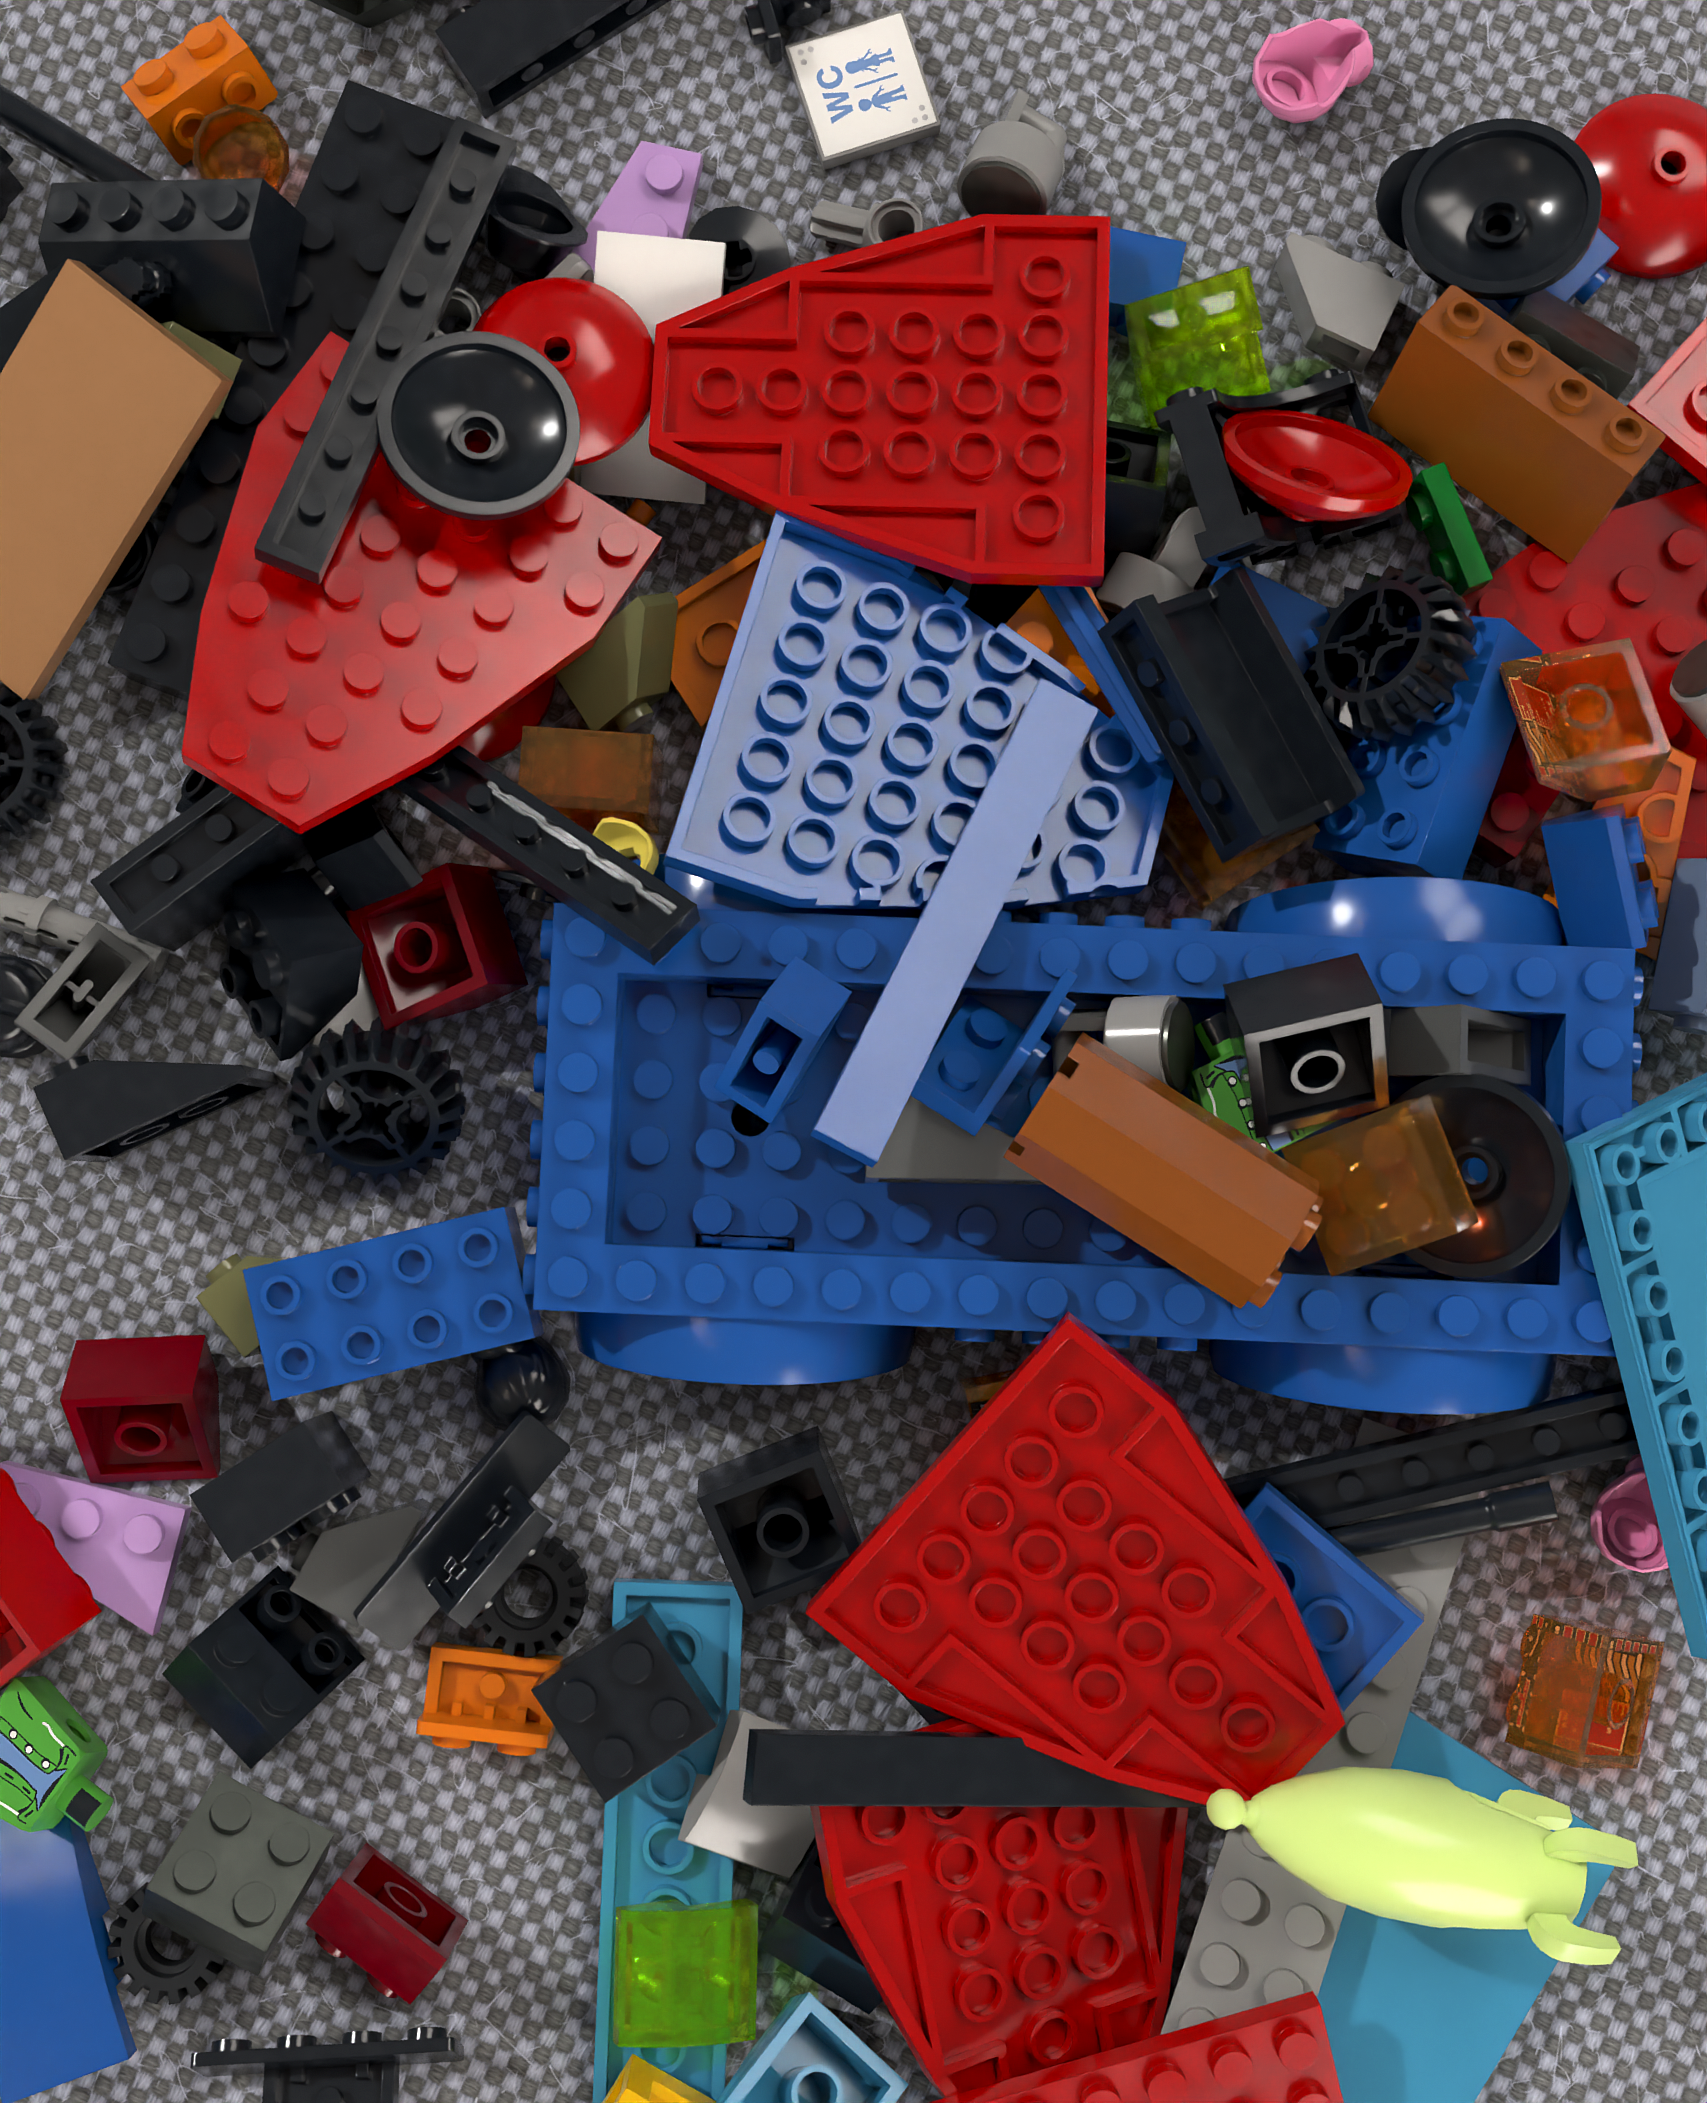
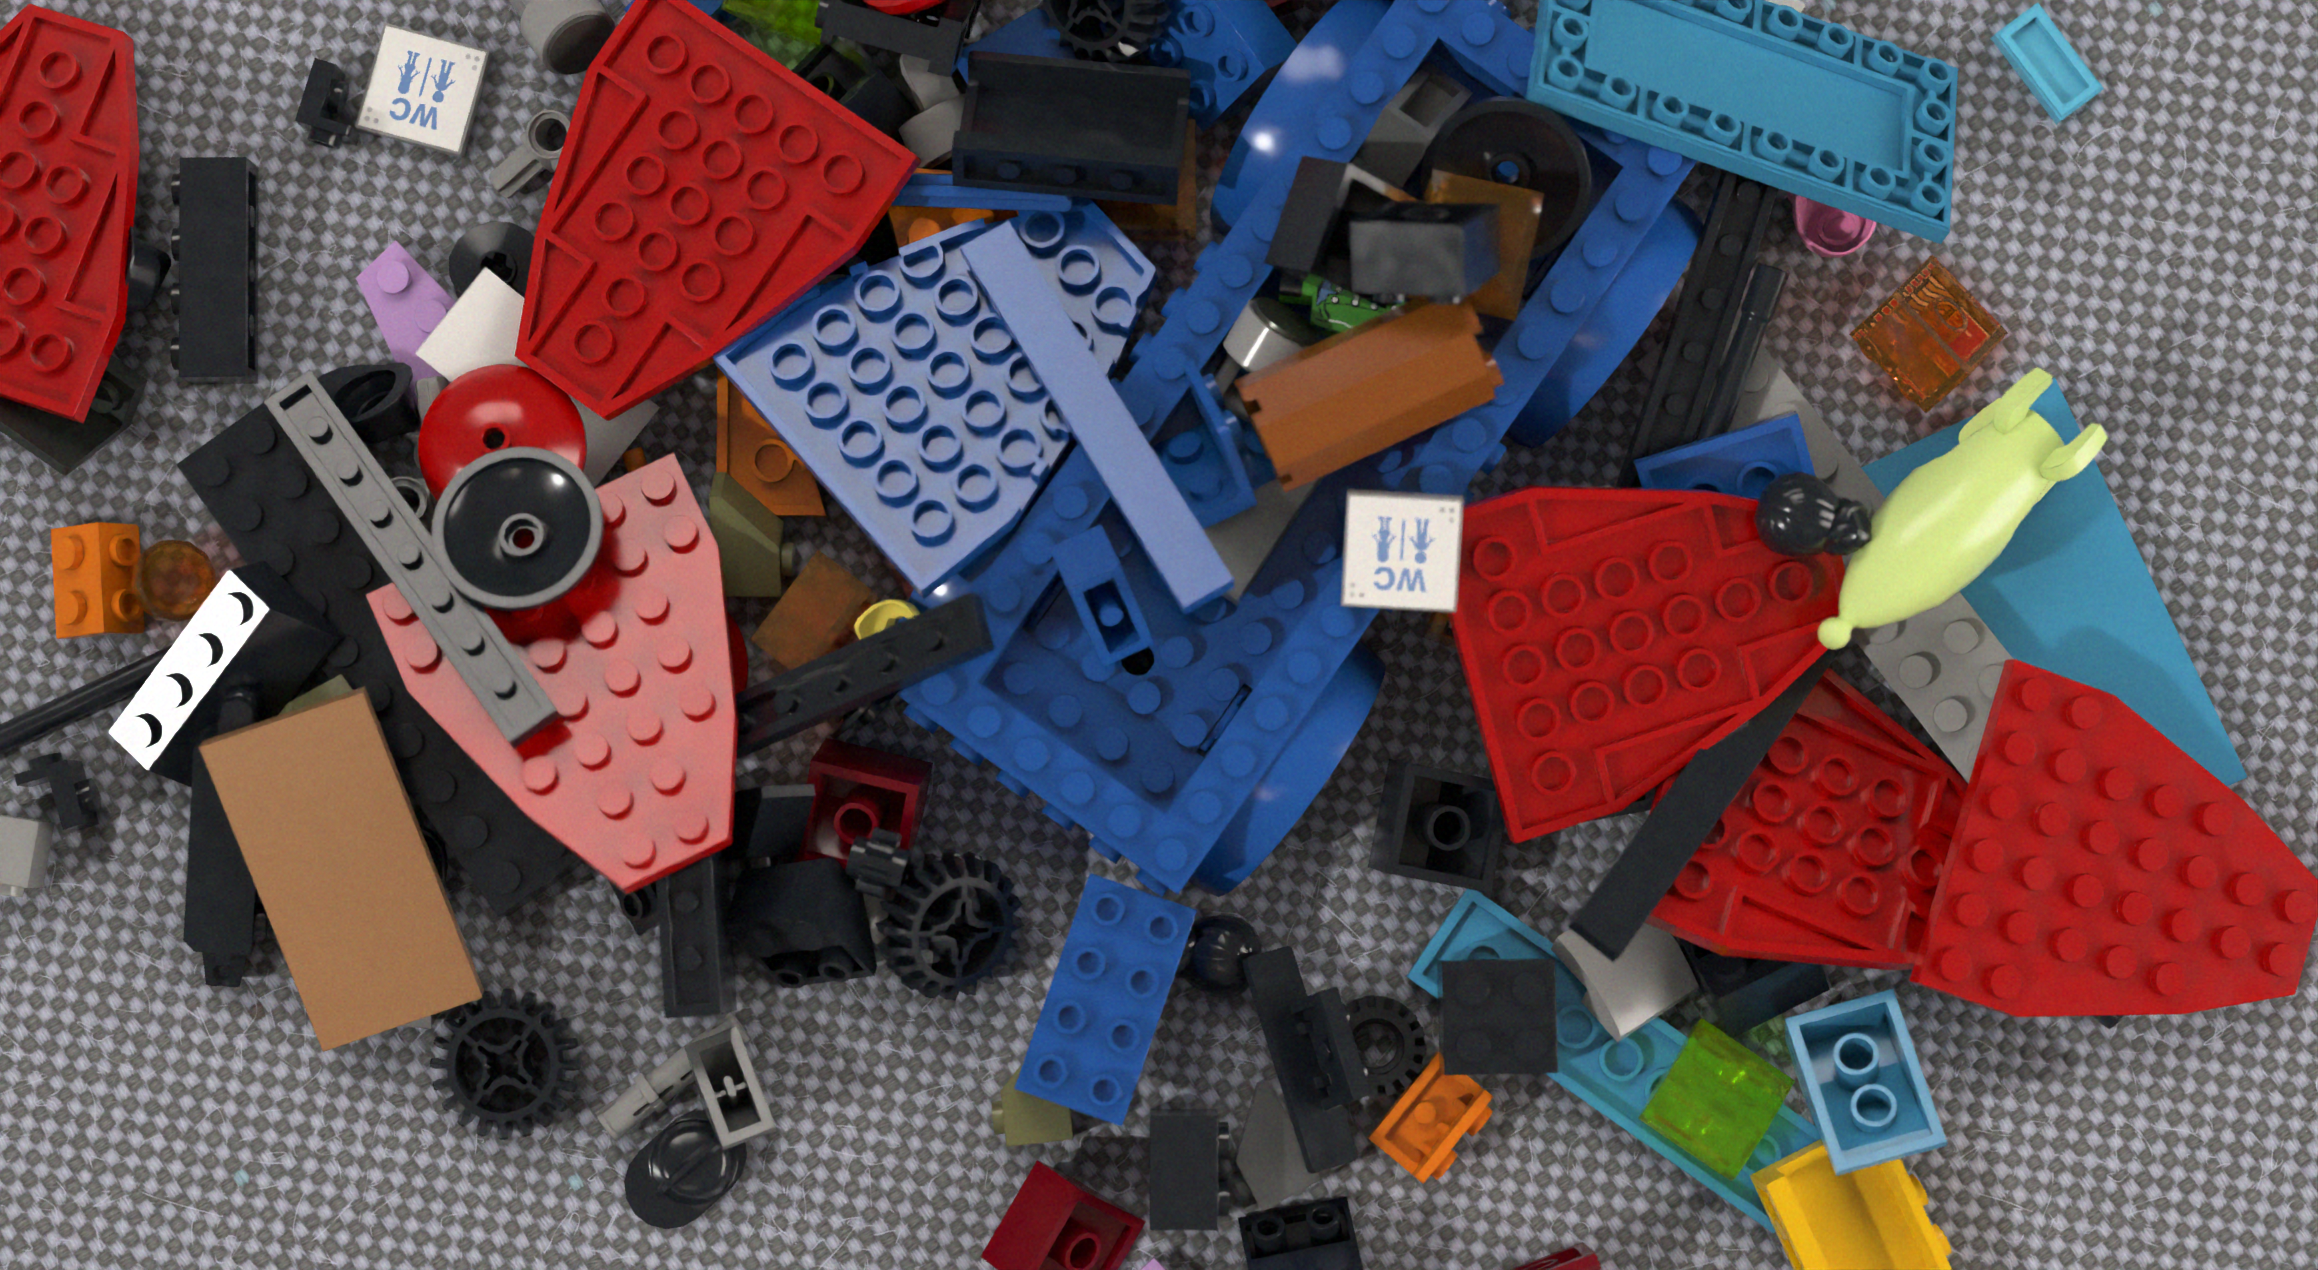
camera: 60 degrees left, 0 degrees up
(120, 1105) = (831, 1107): black slope -> none
(387, 992) = (878, 862): none -> black gear
(1022, 1313) = (1402, 550): none -> white tile
(1325, 1703) = (1805, 518): none -> black hair
(1344, 1139) = (1425, 250): none -> black brick

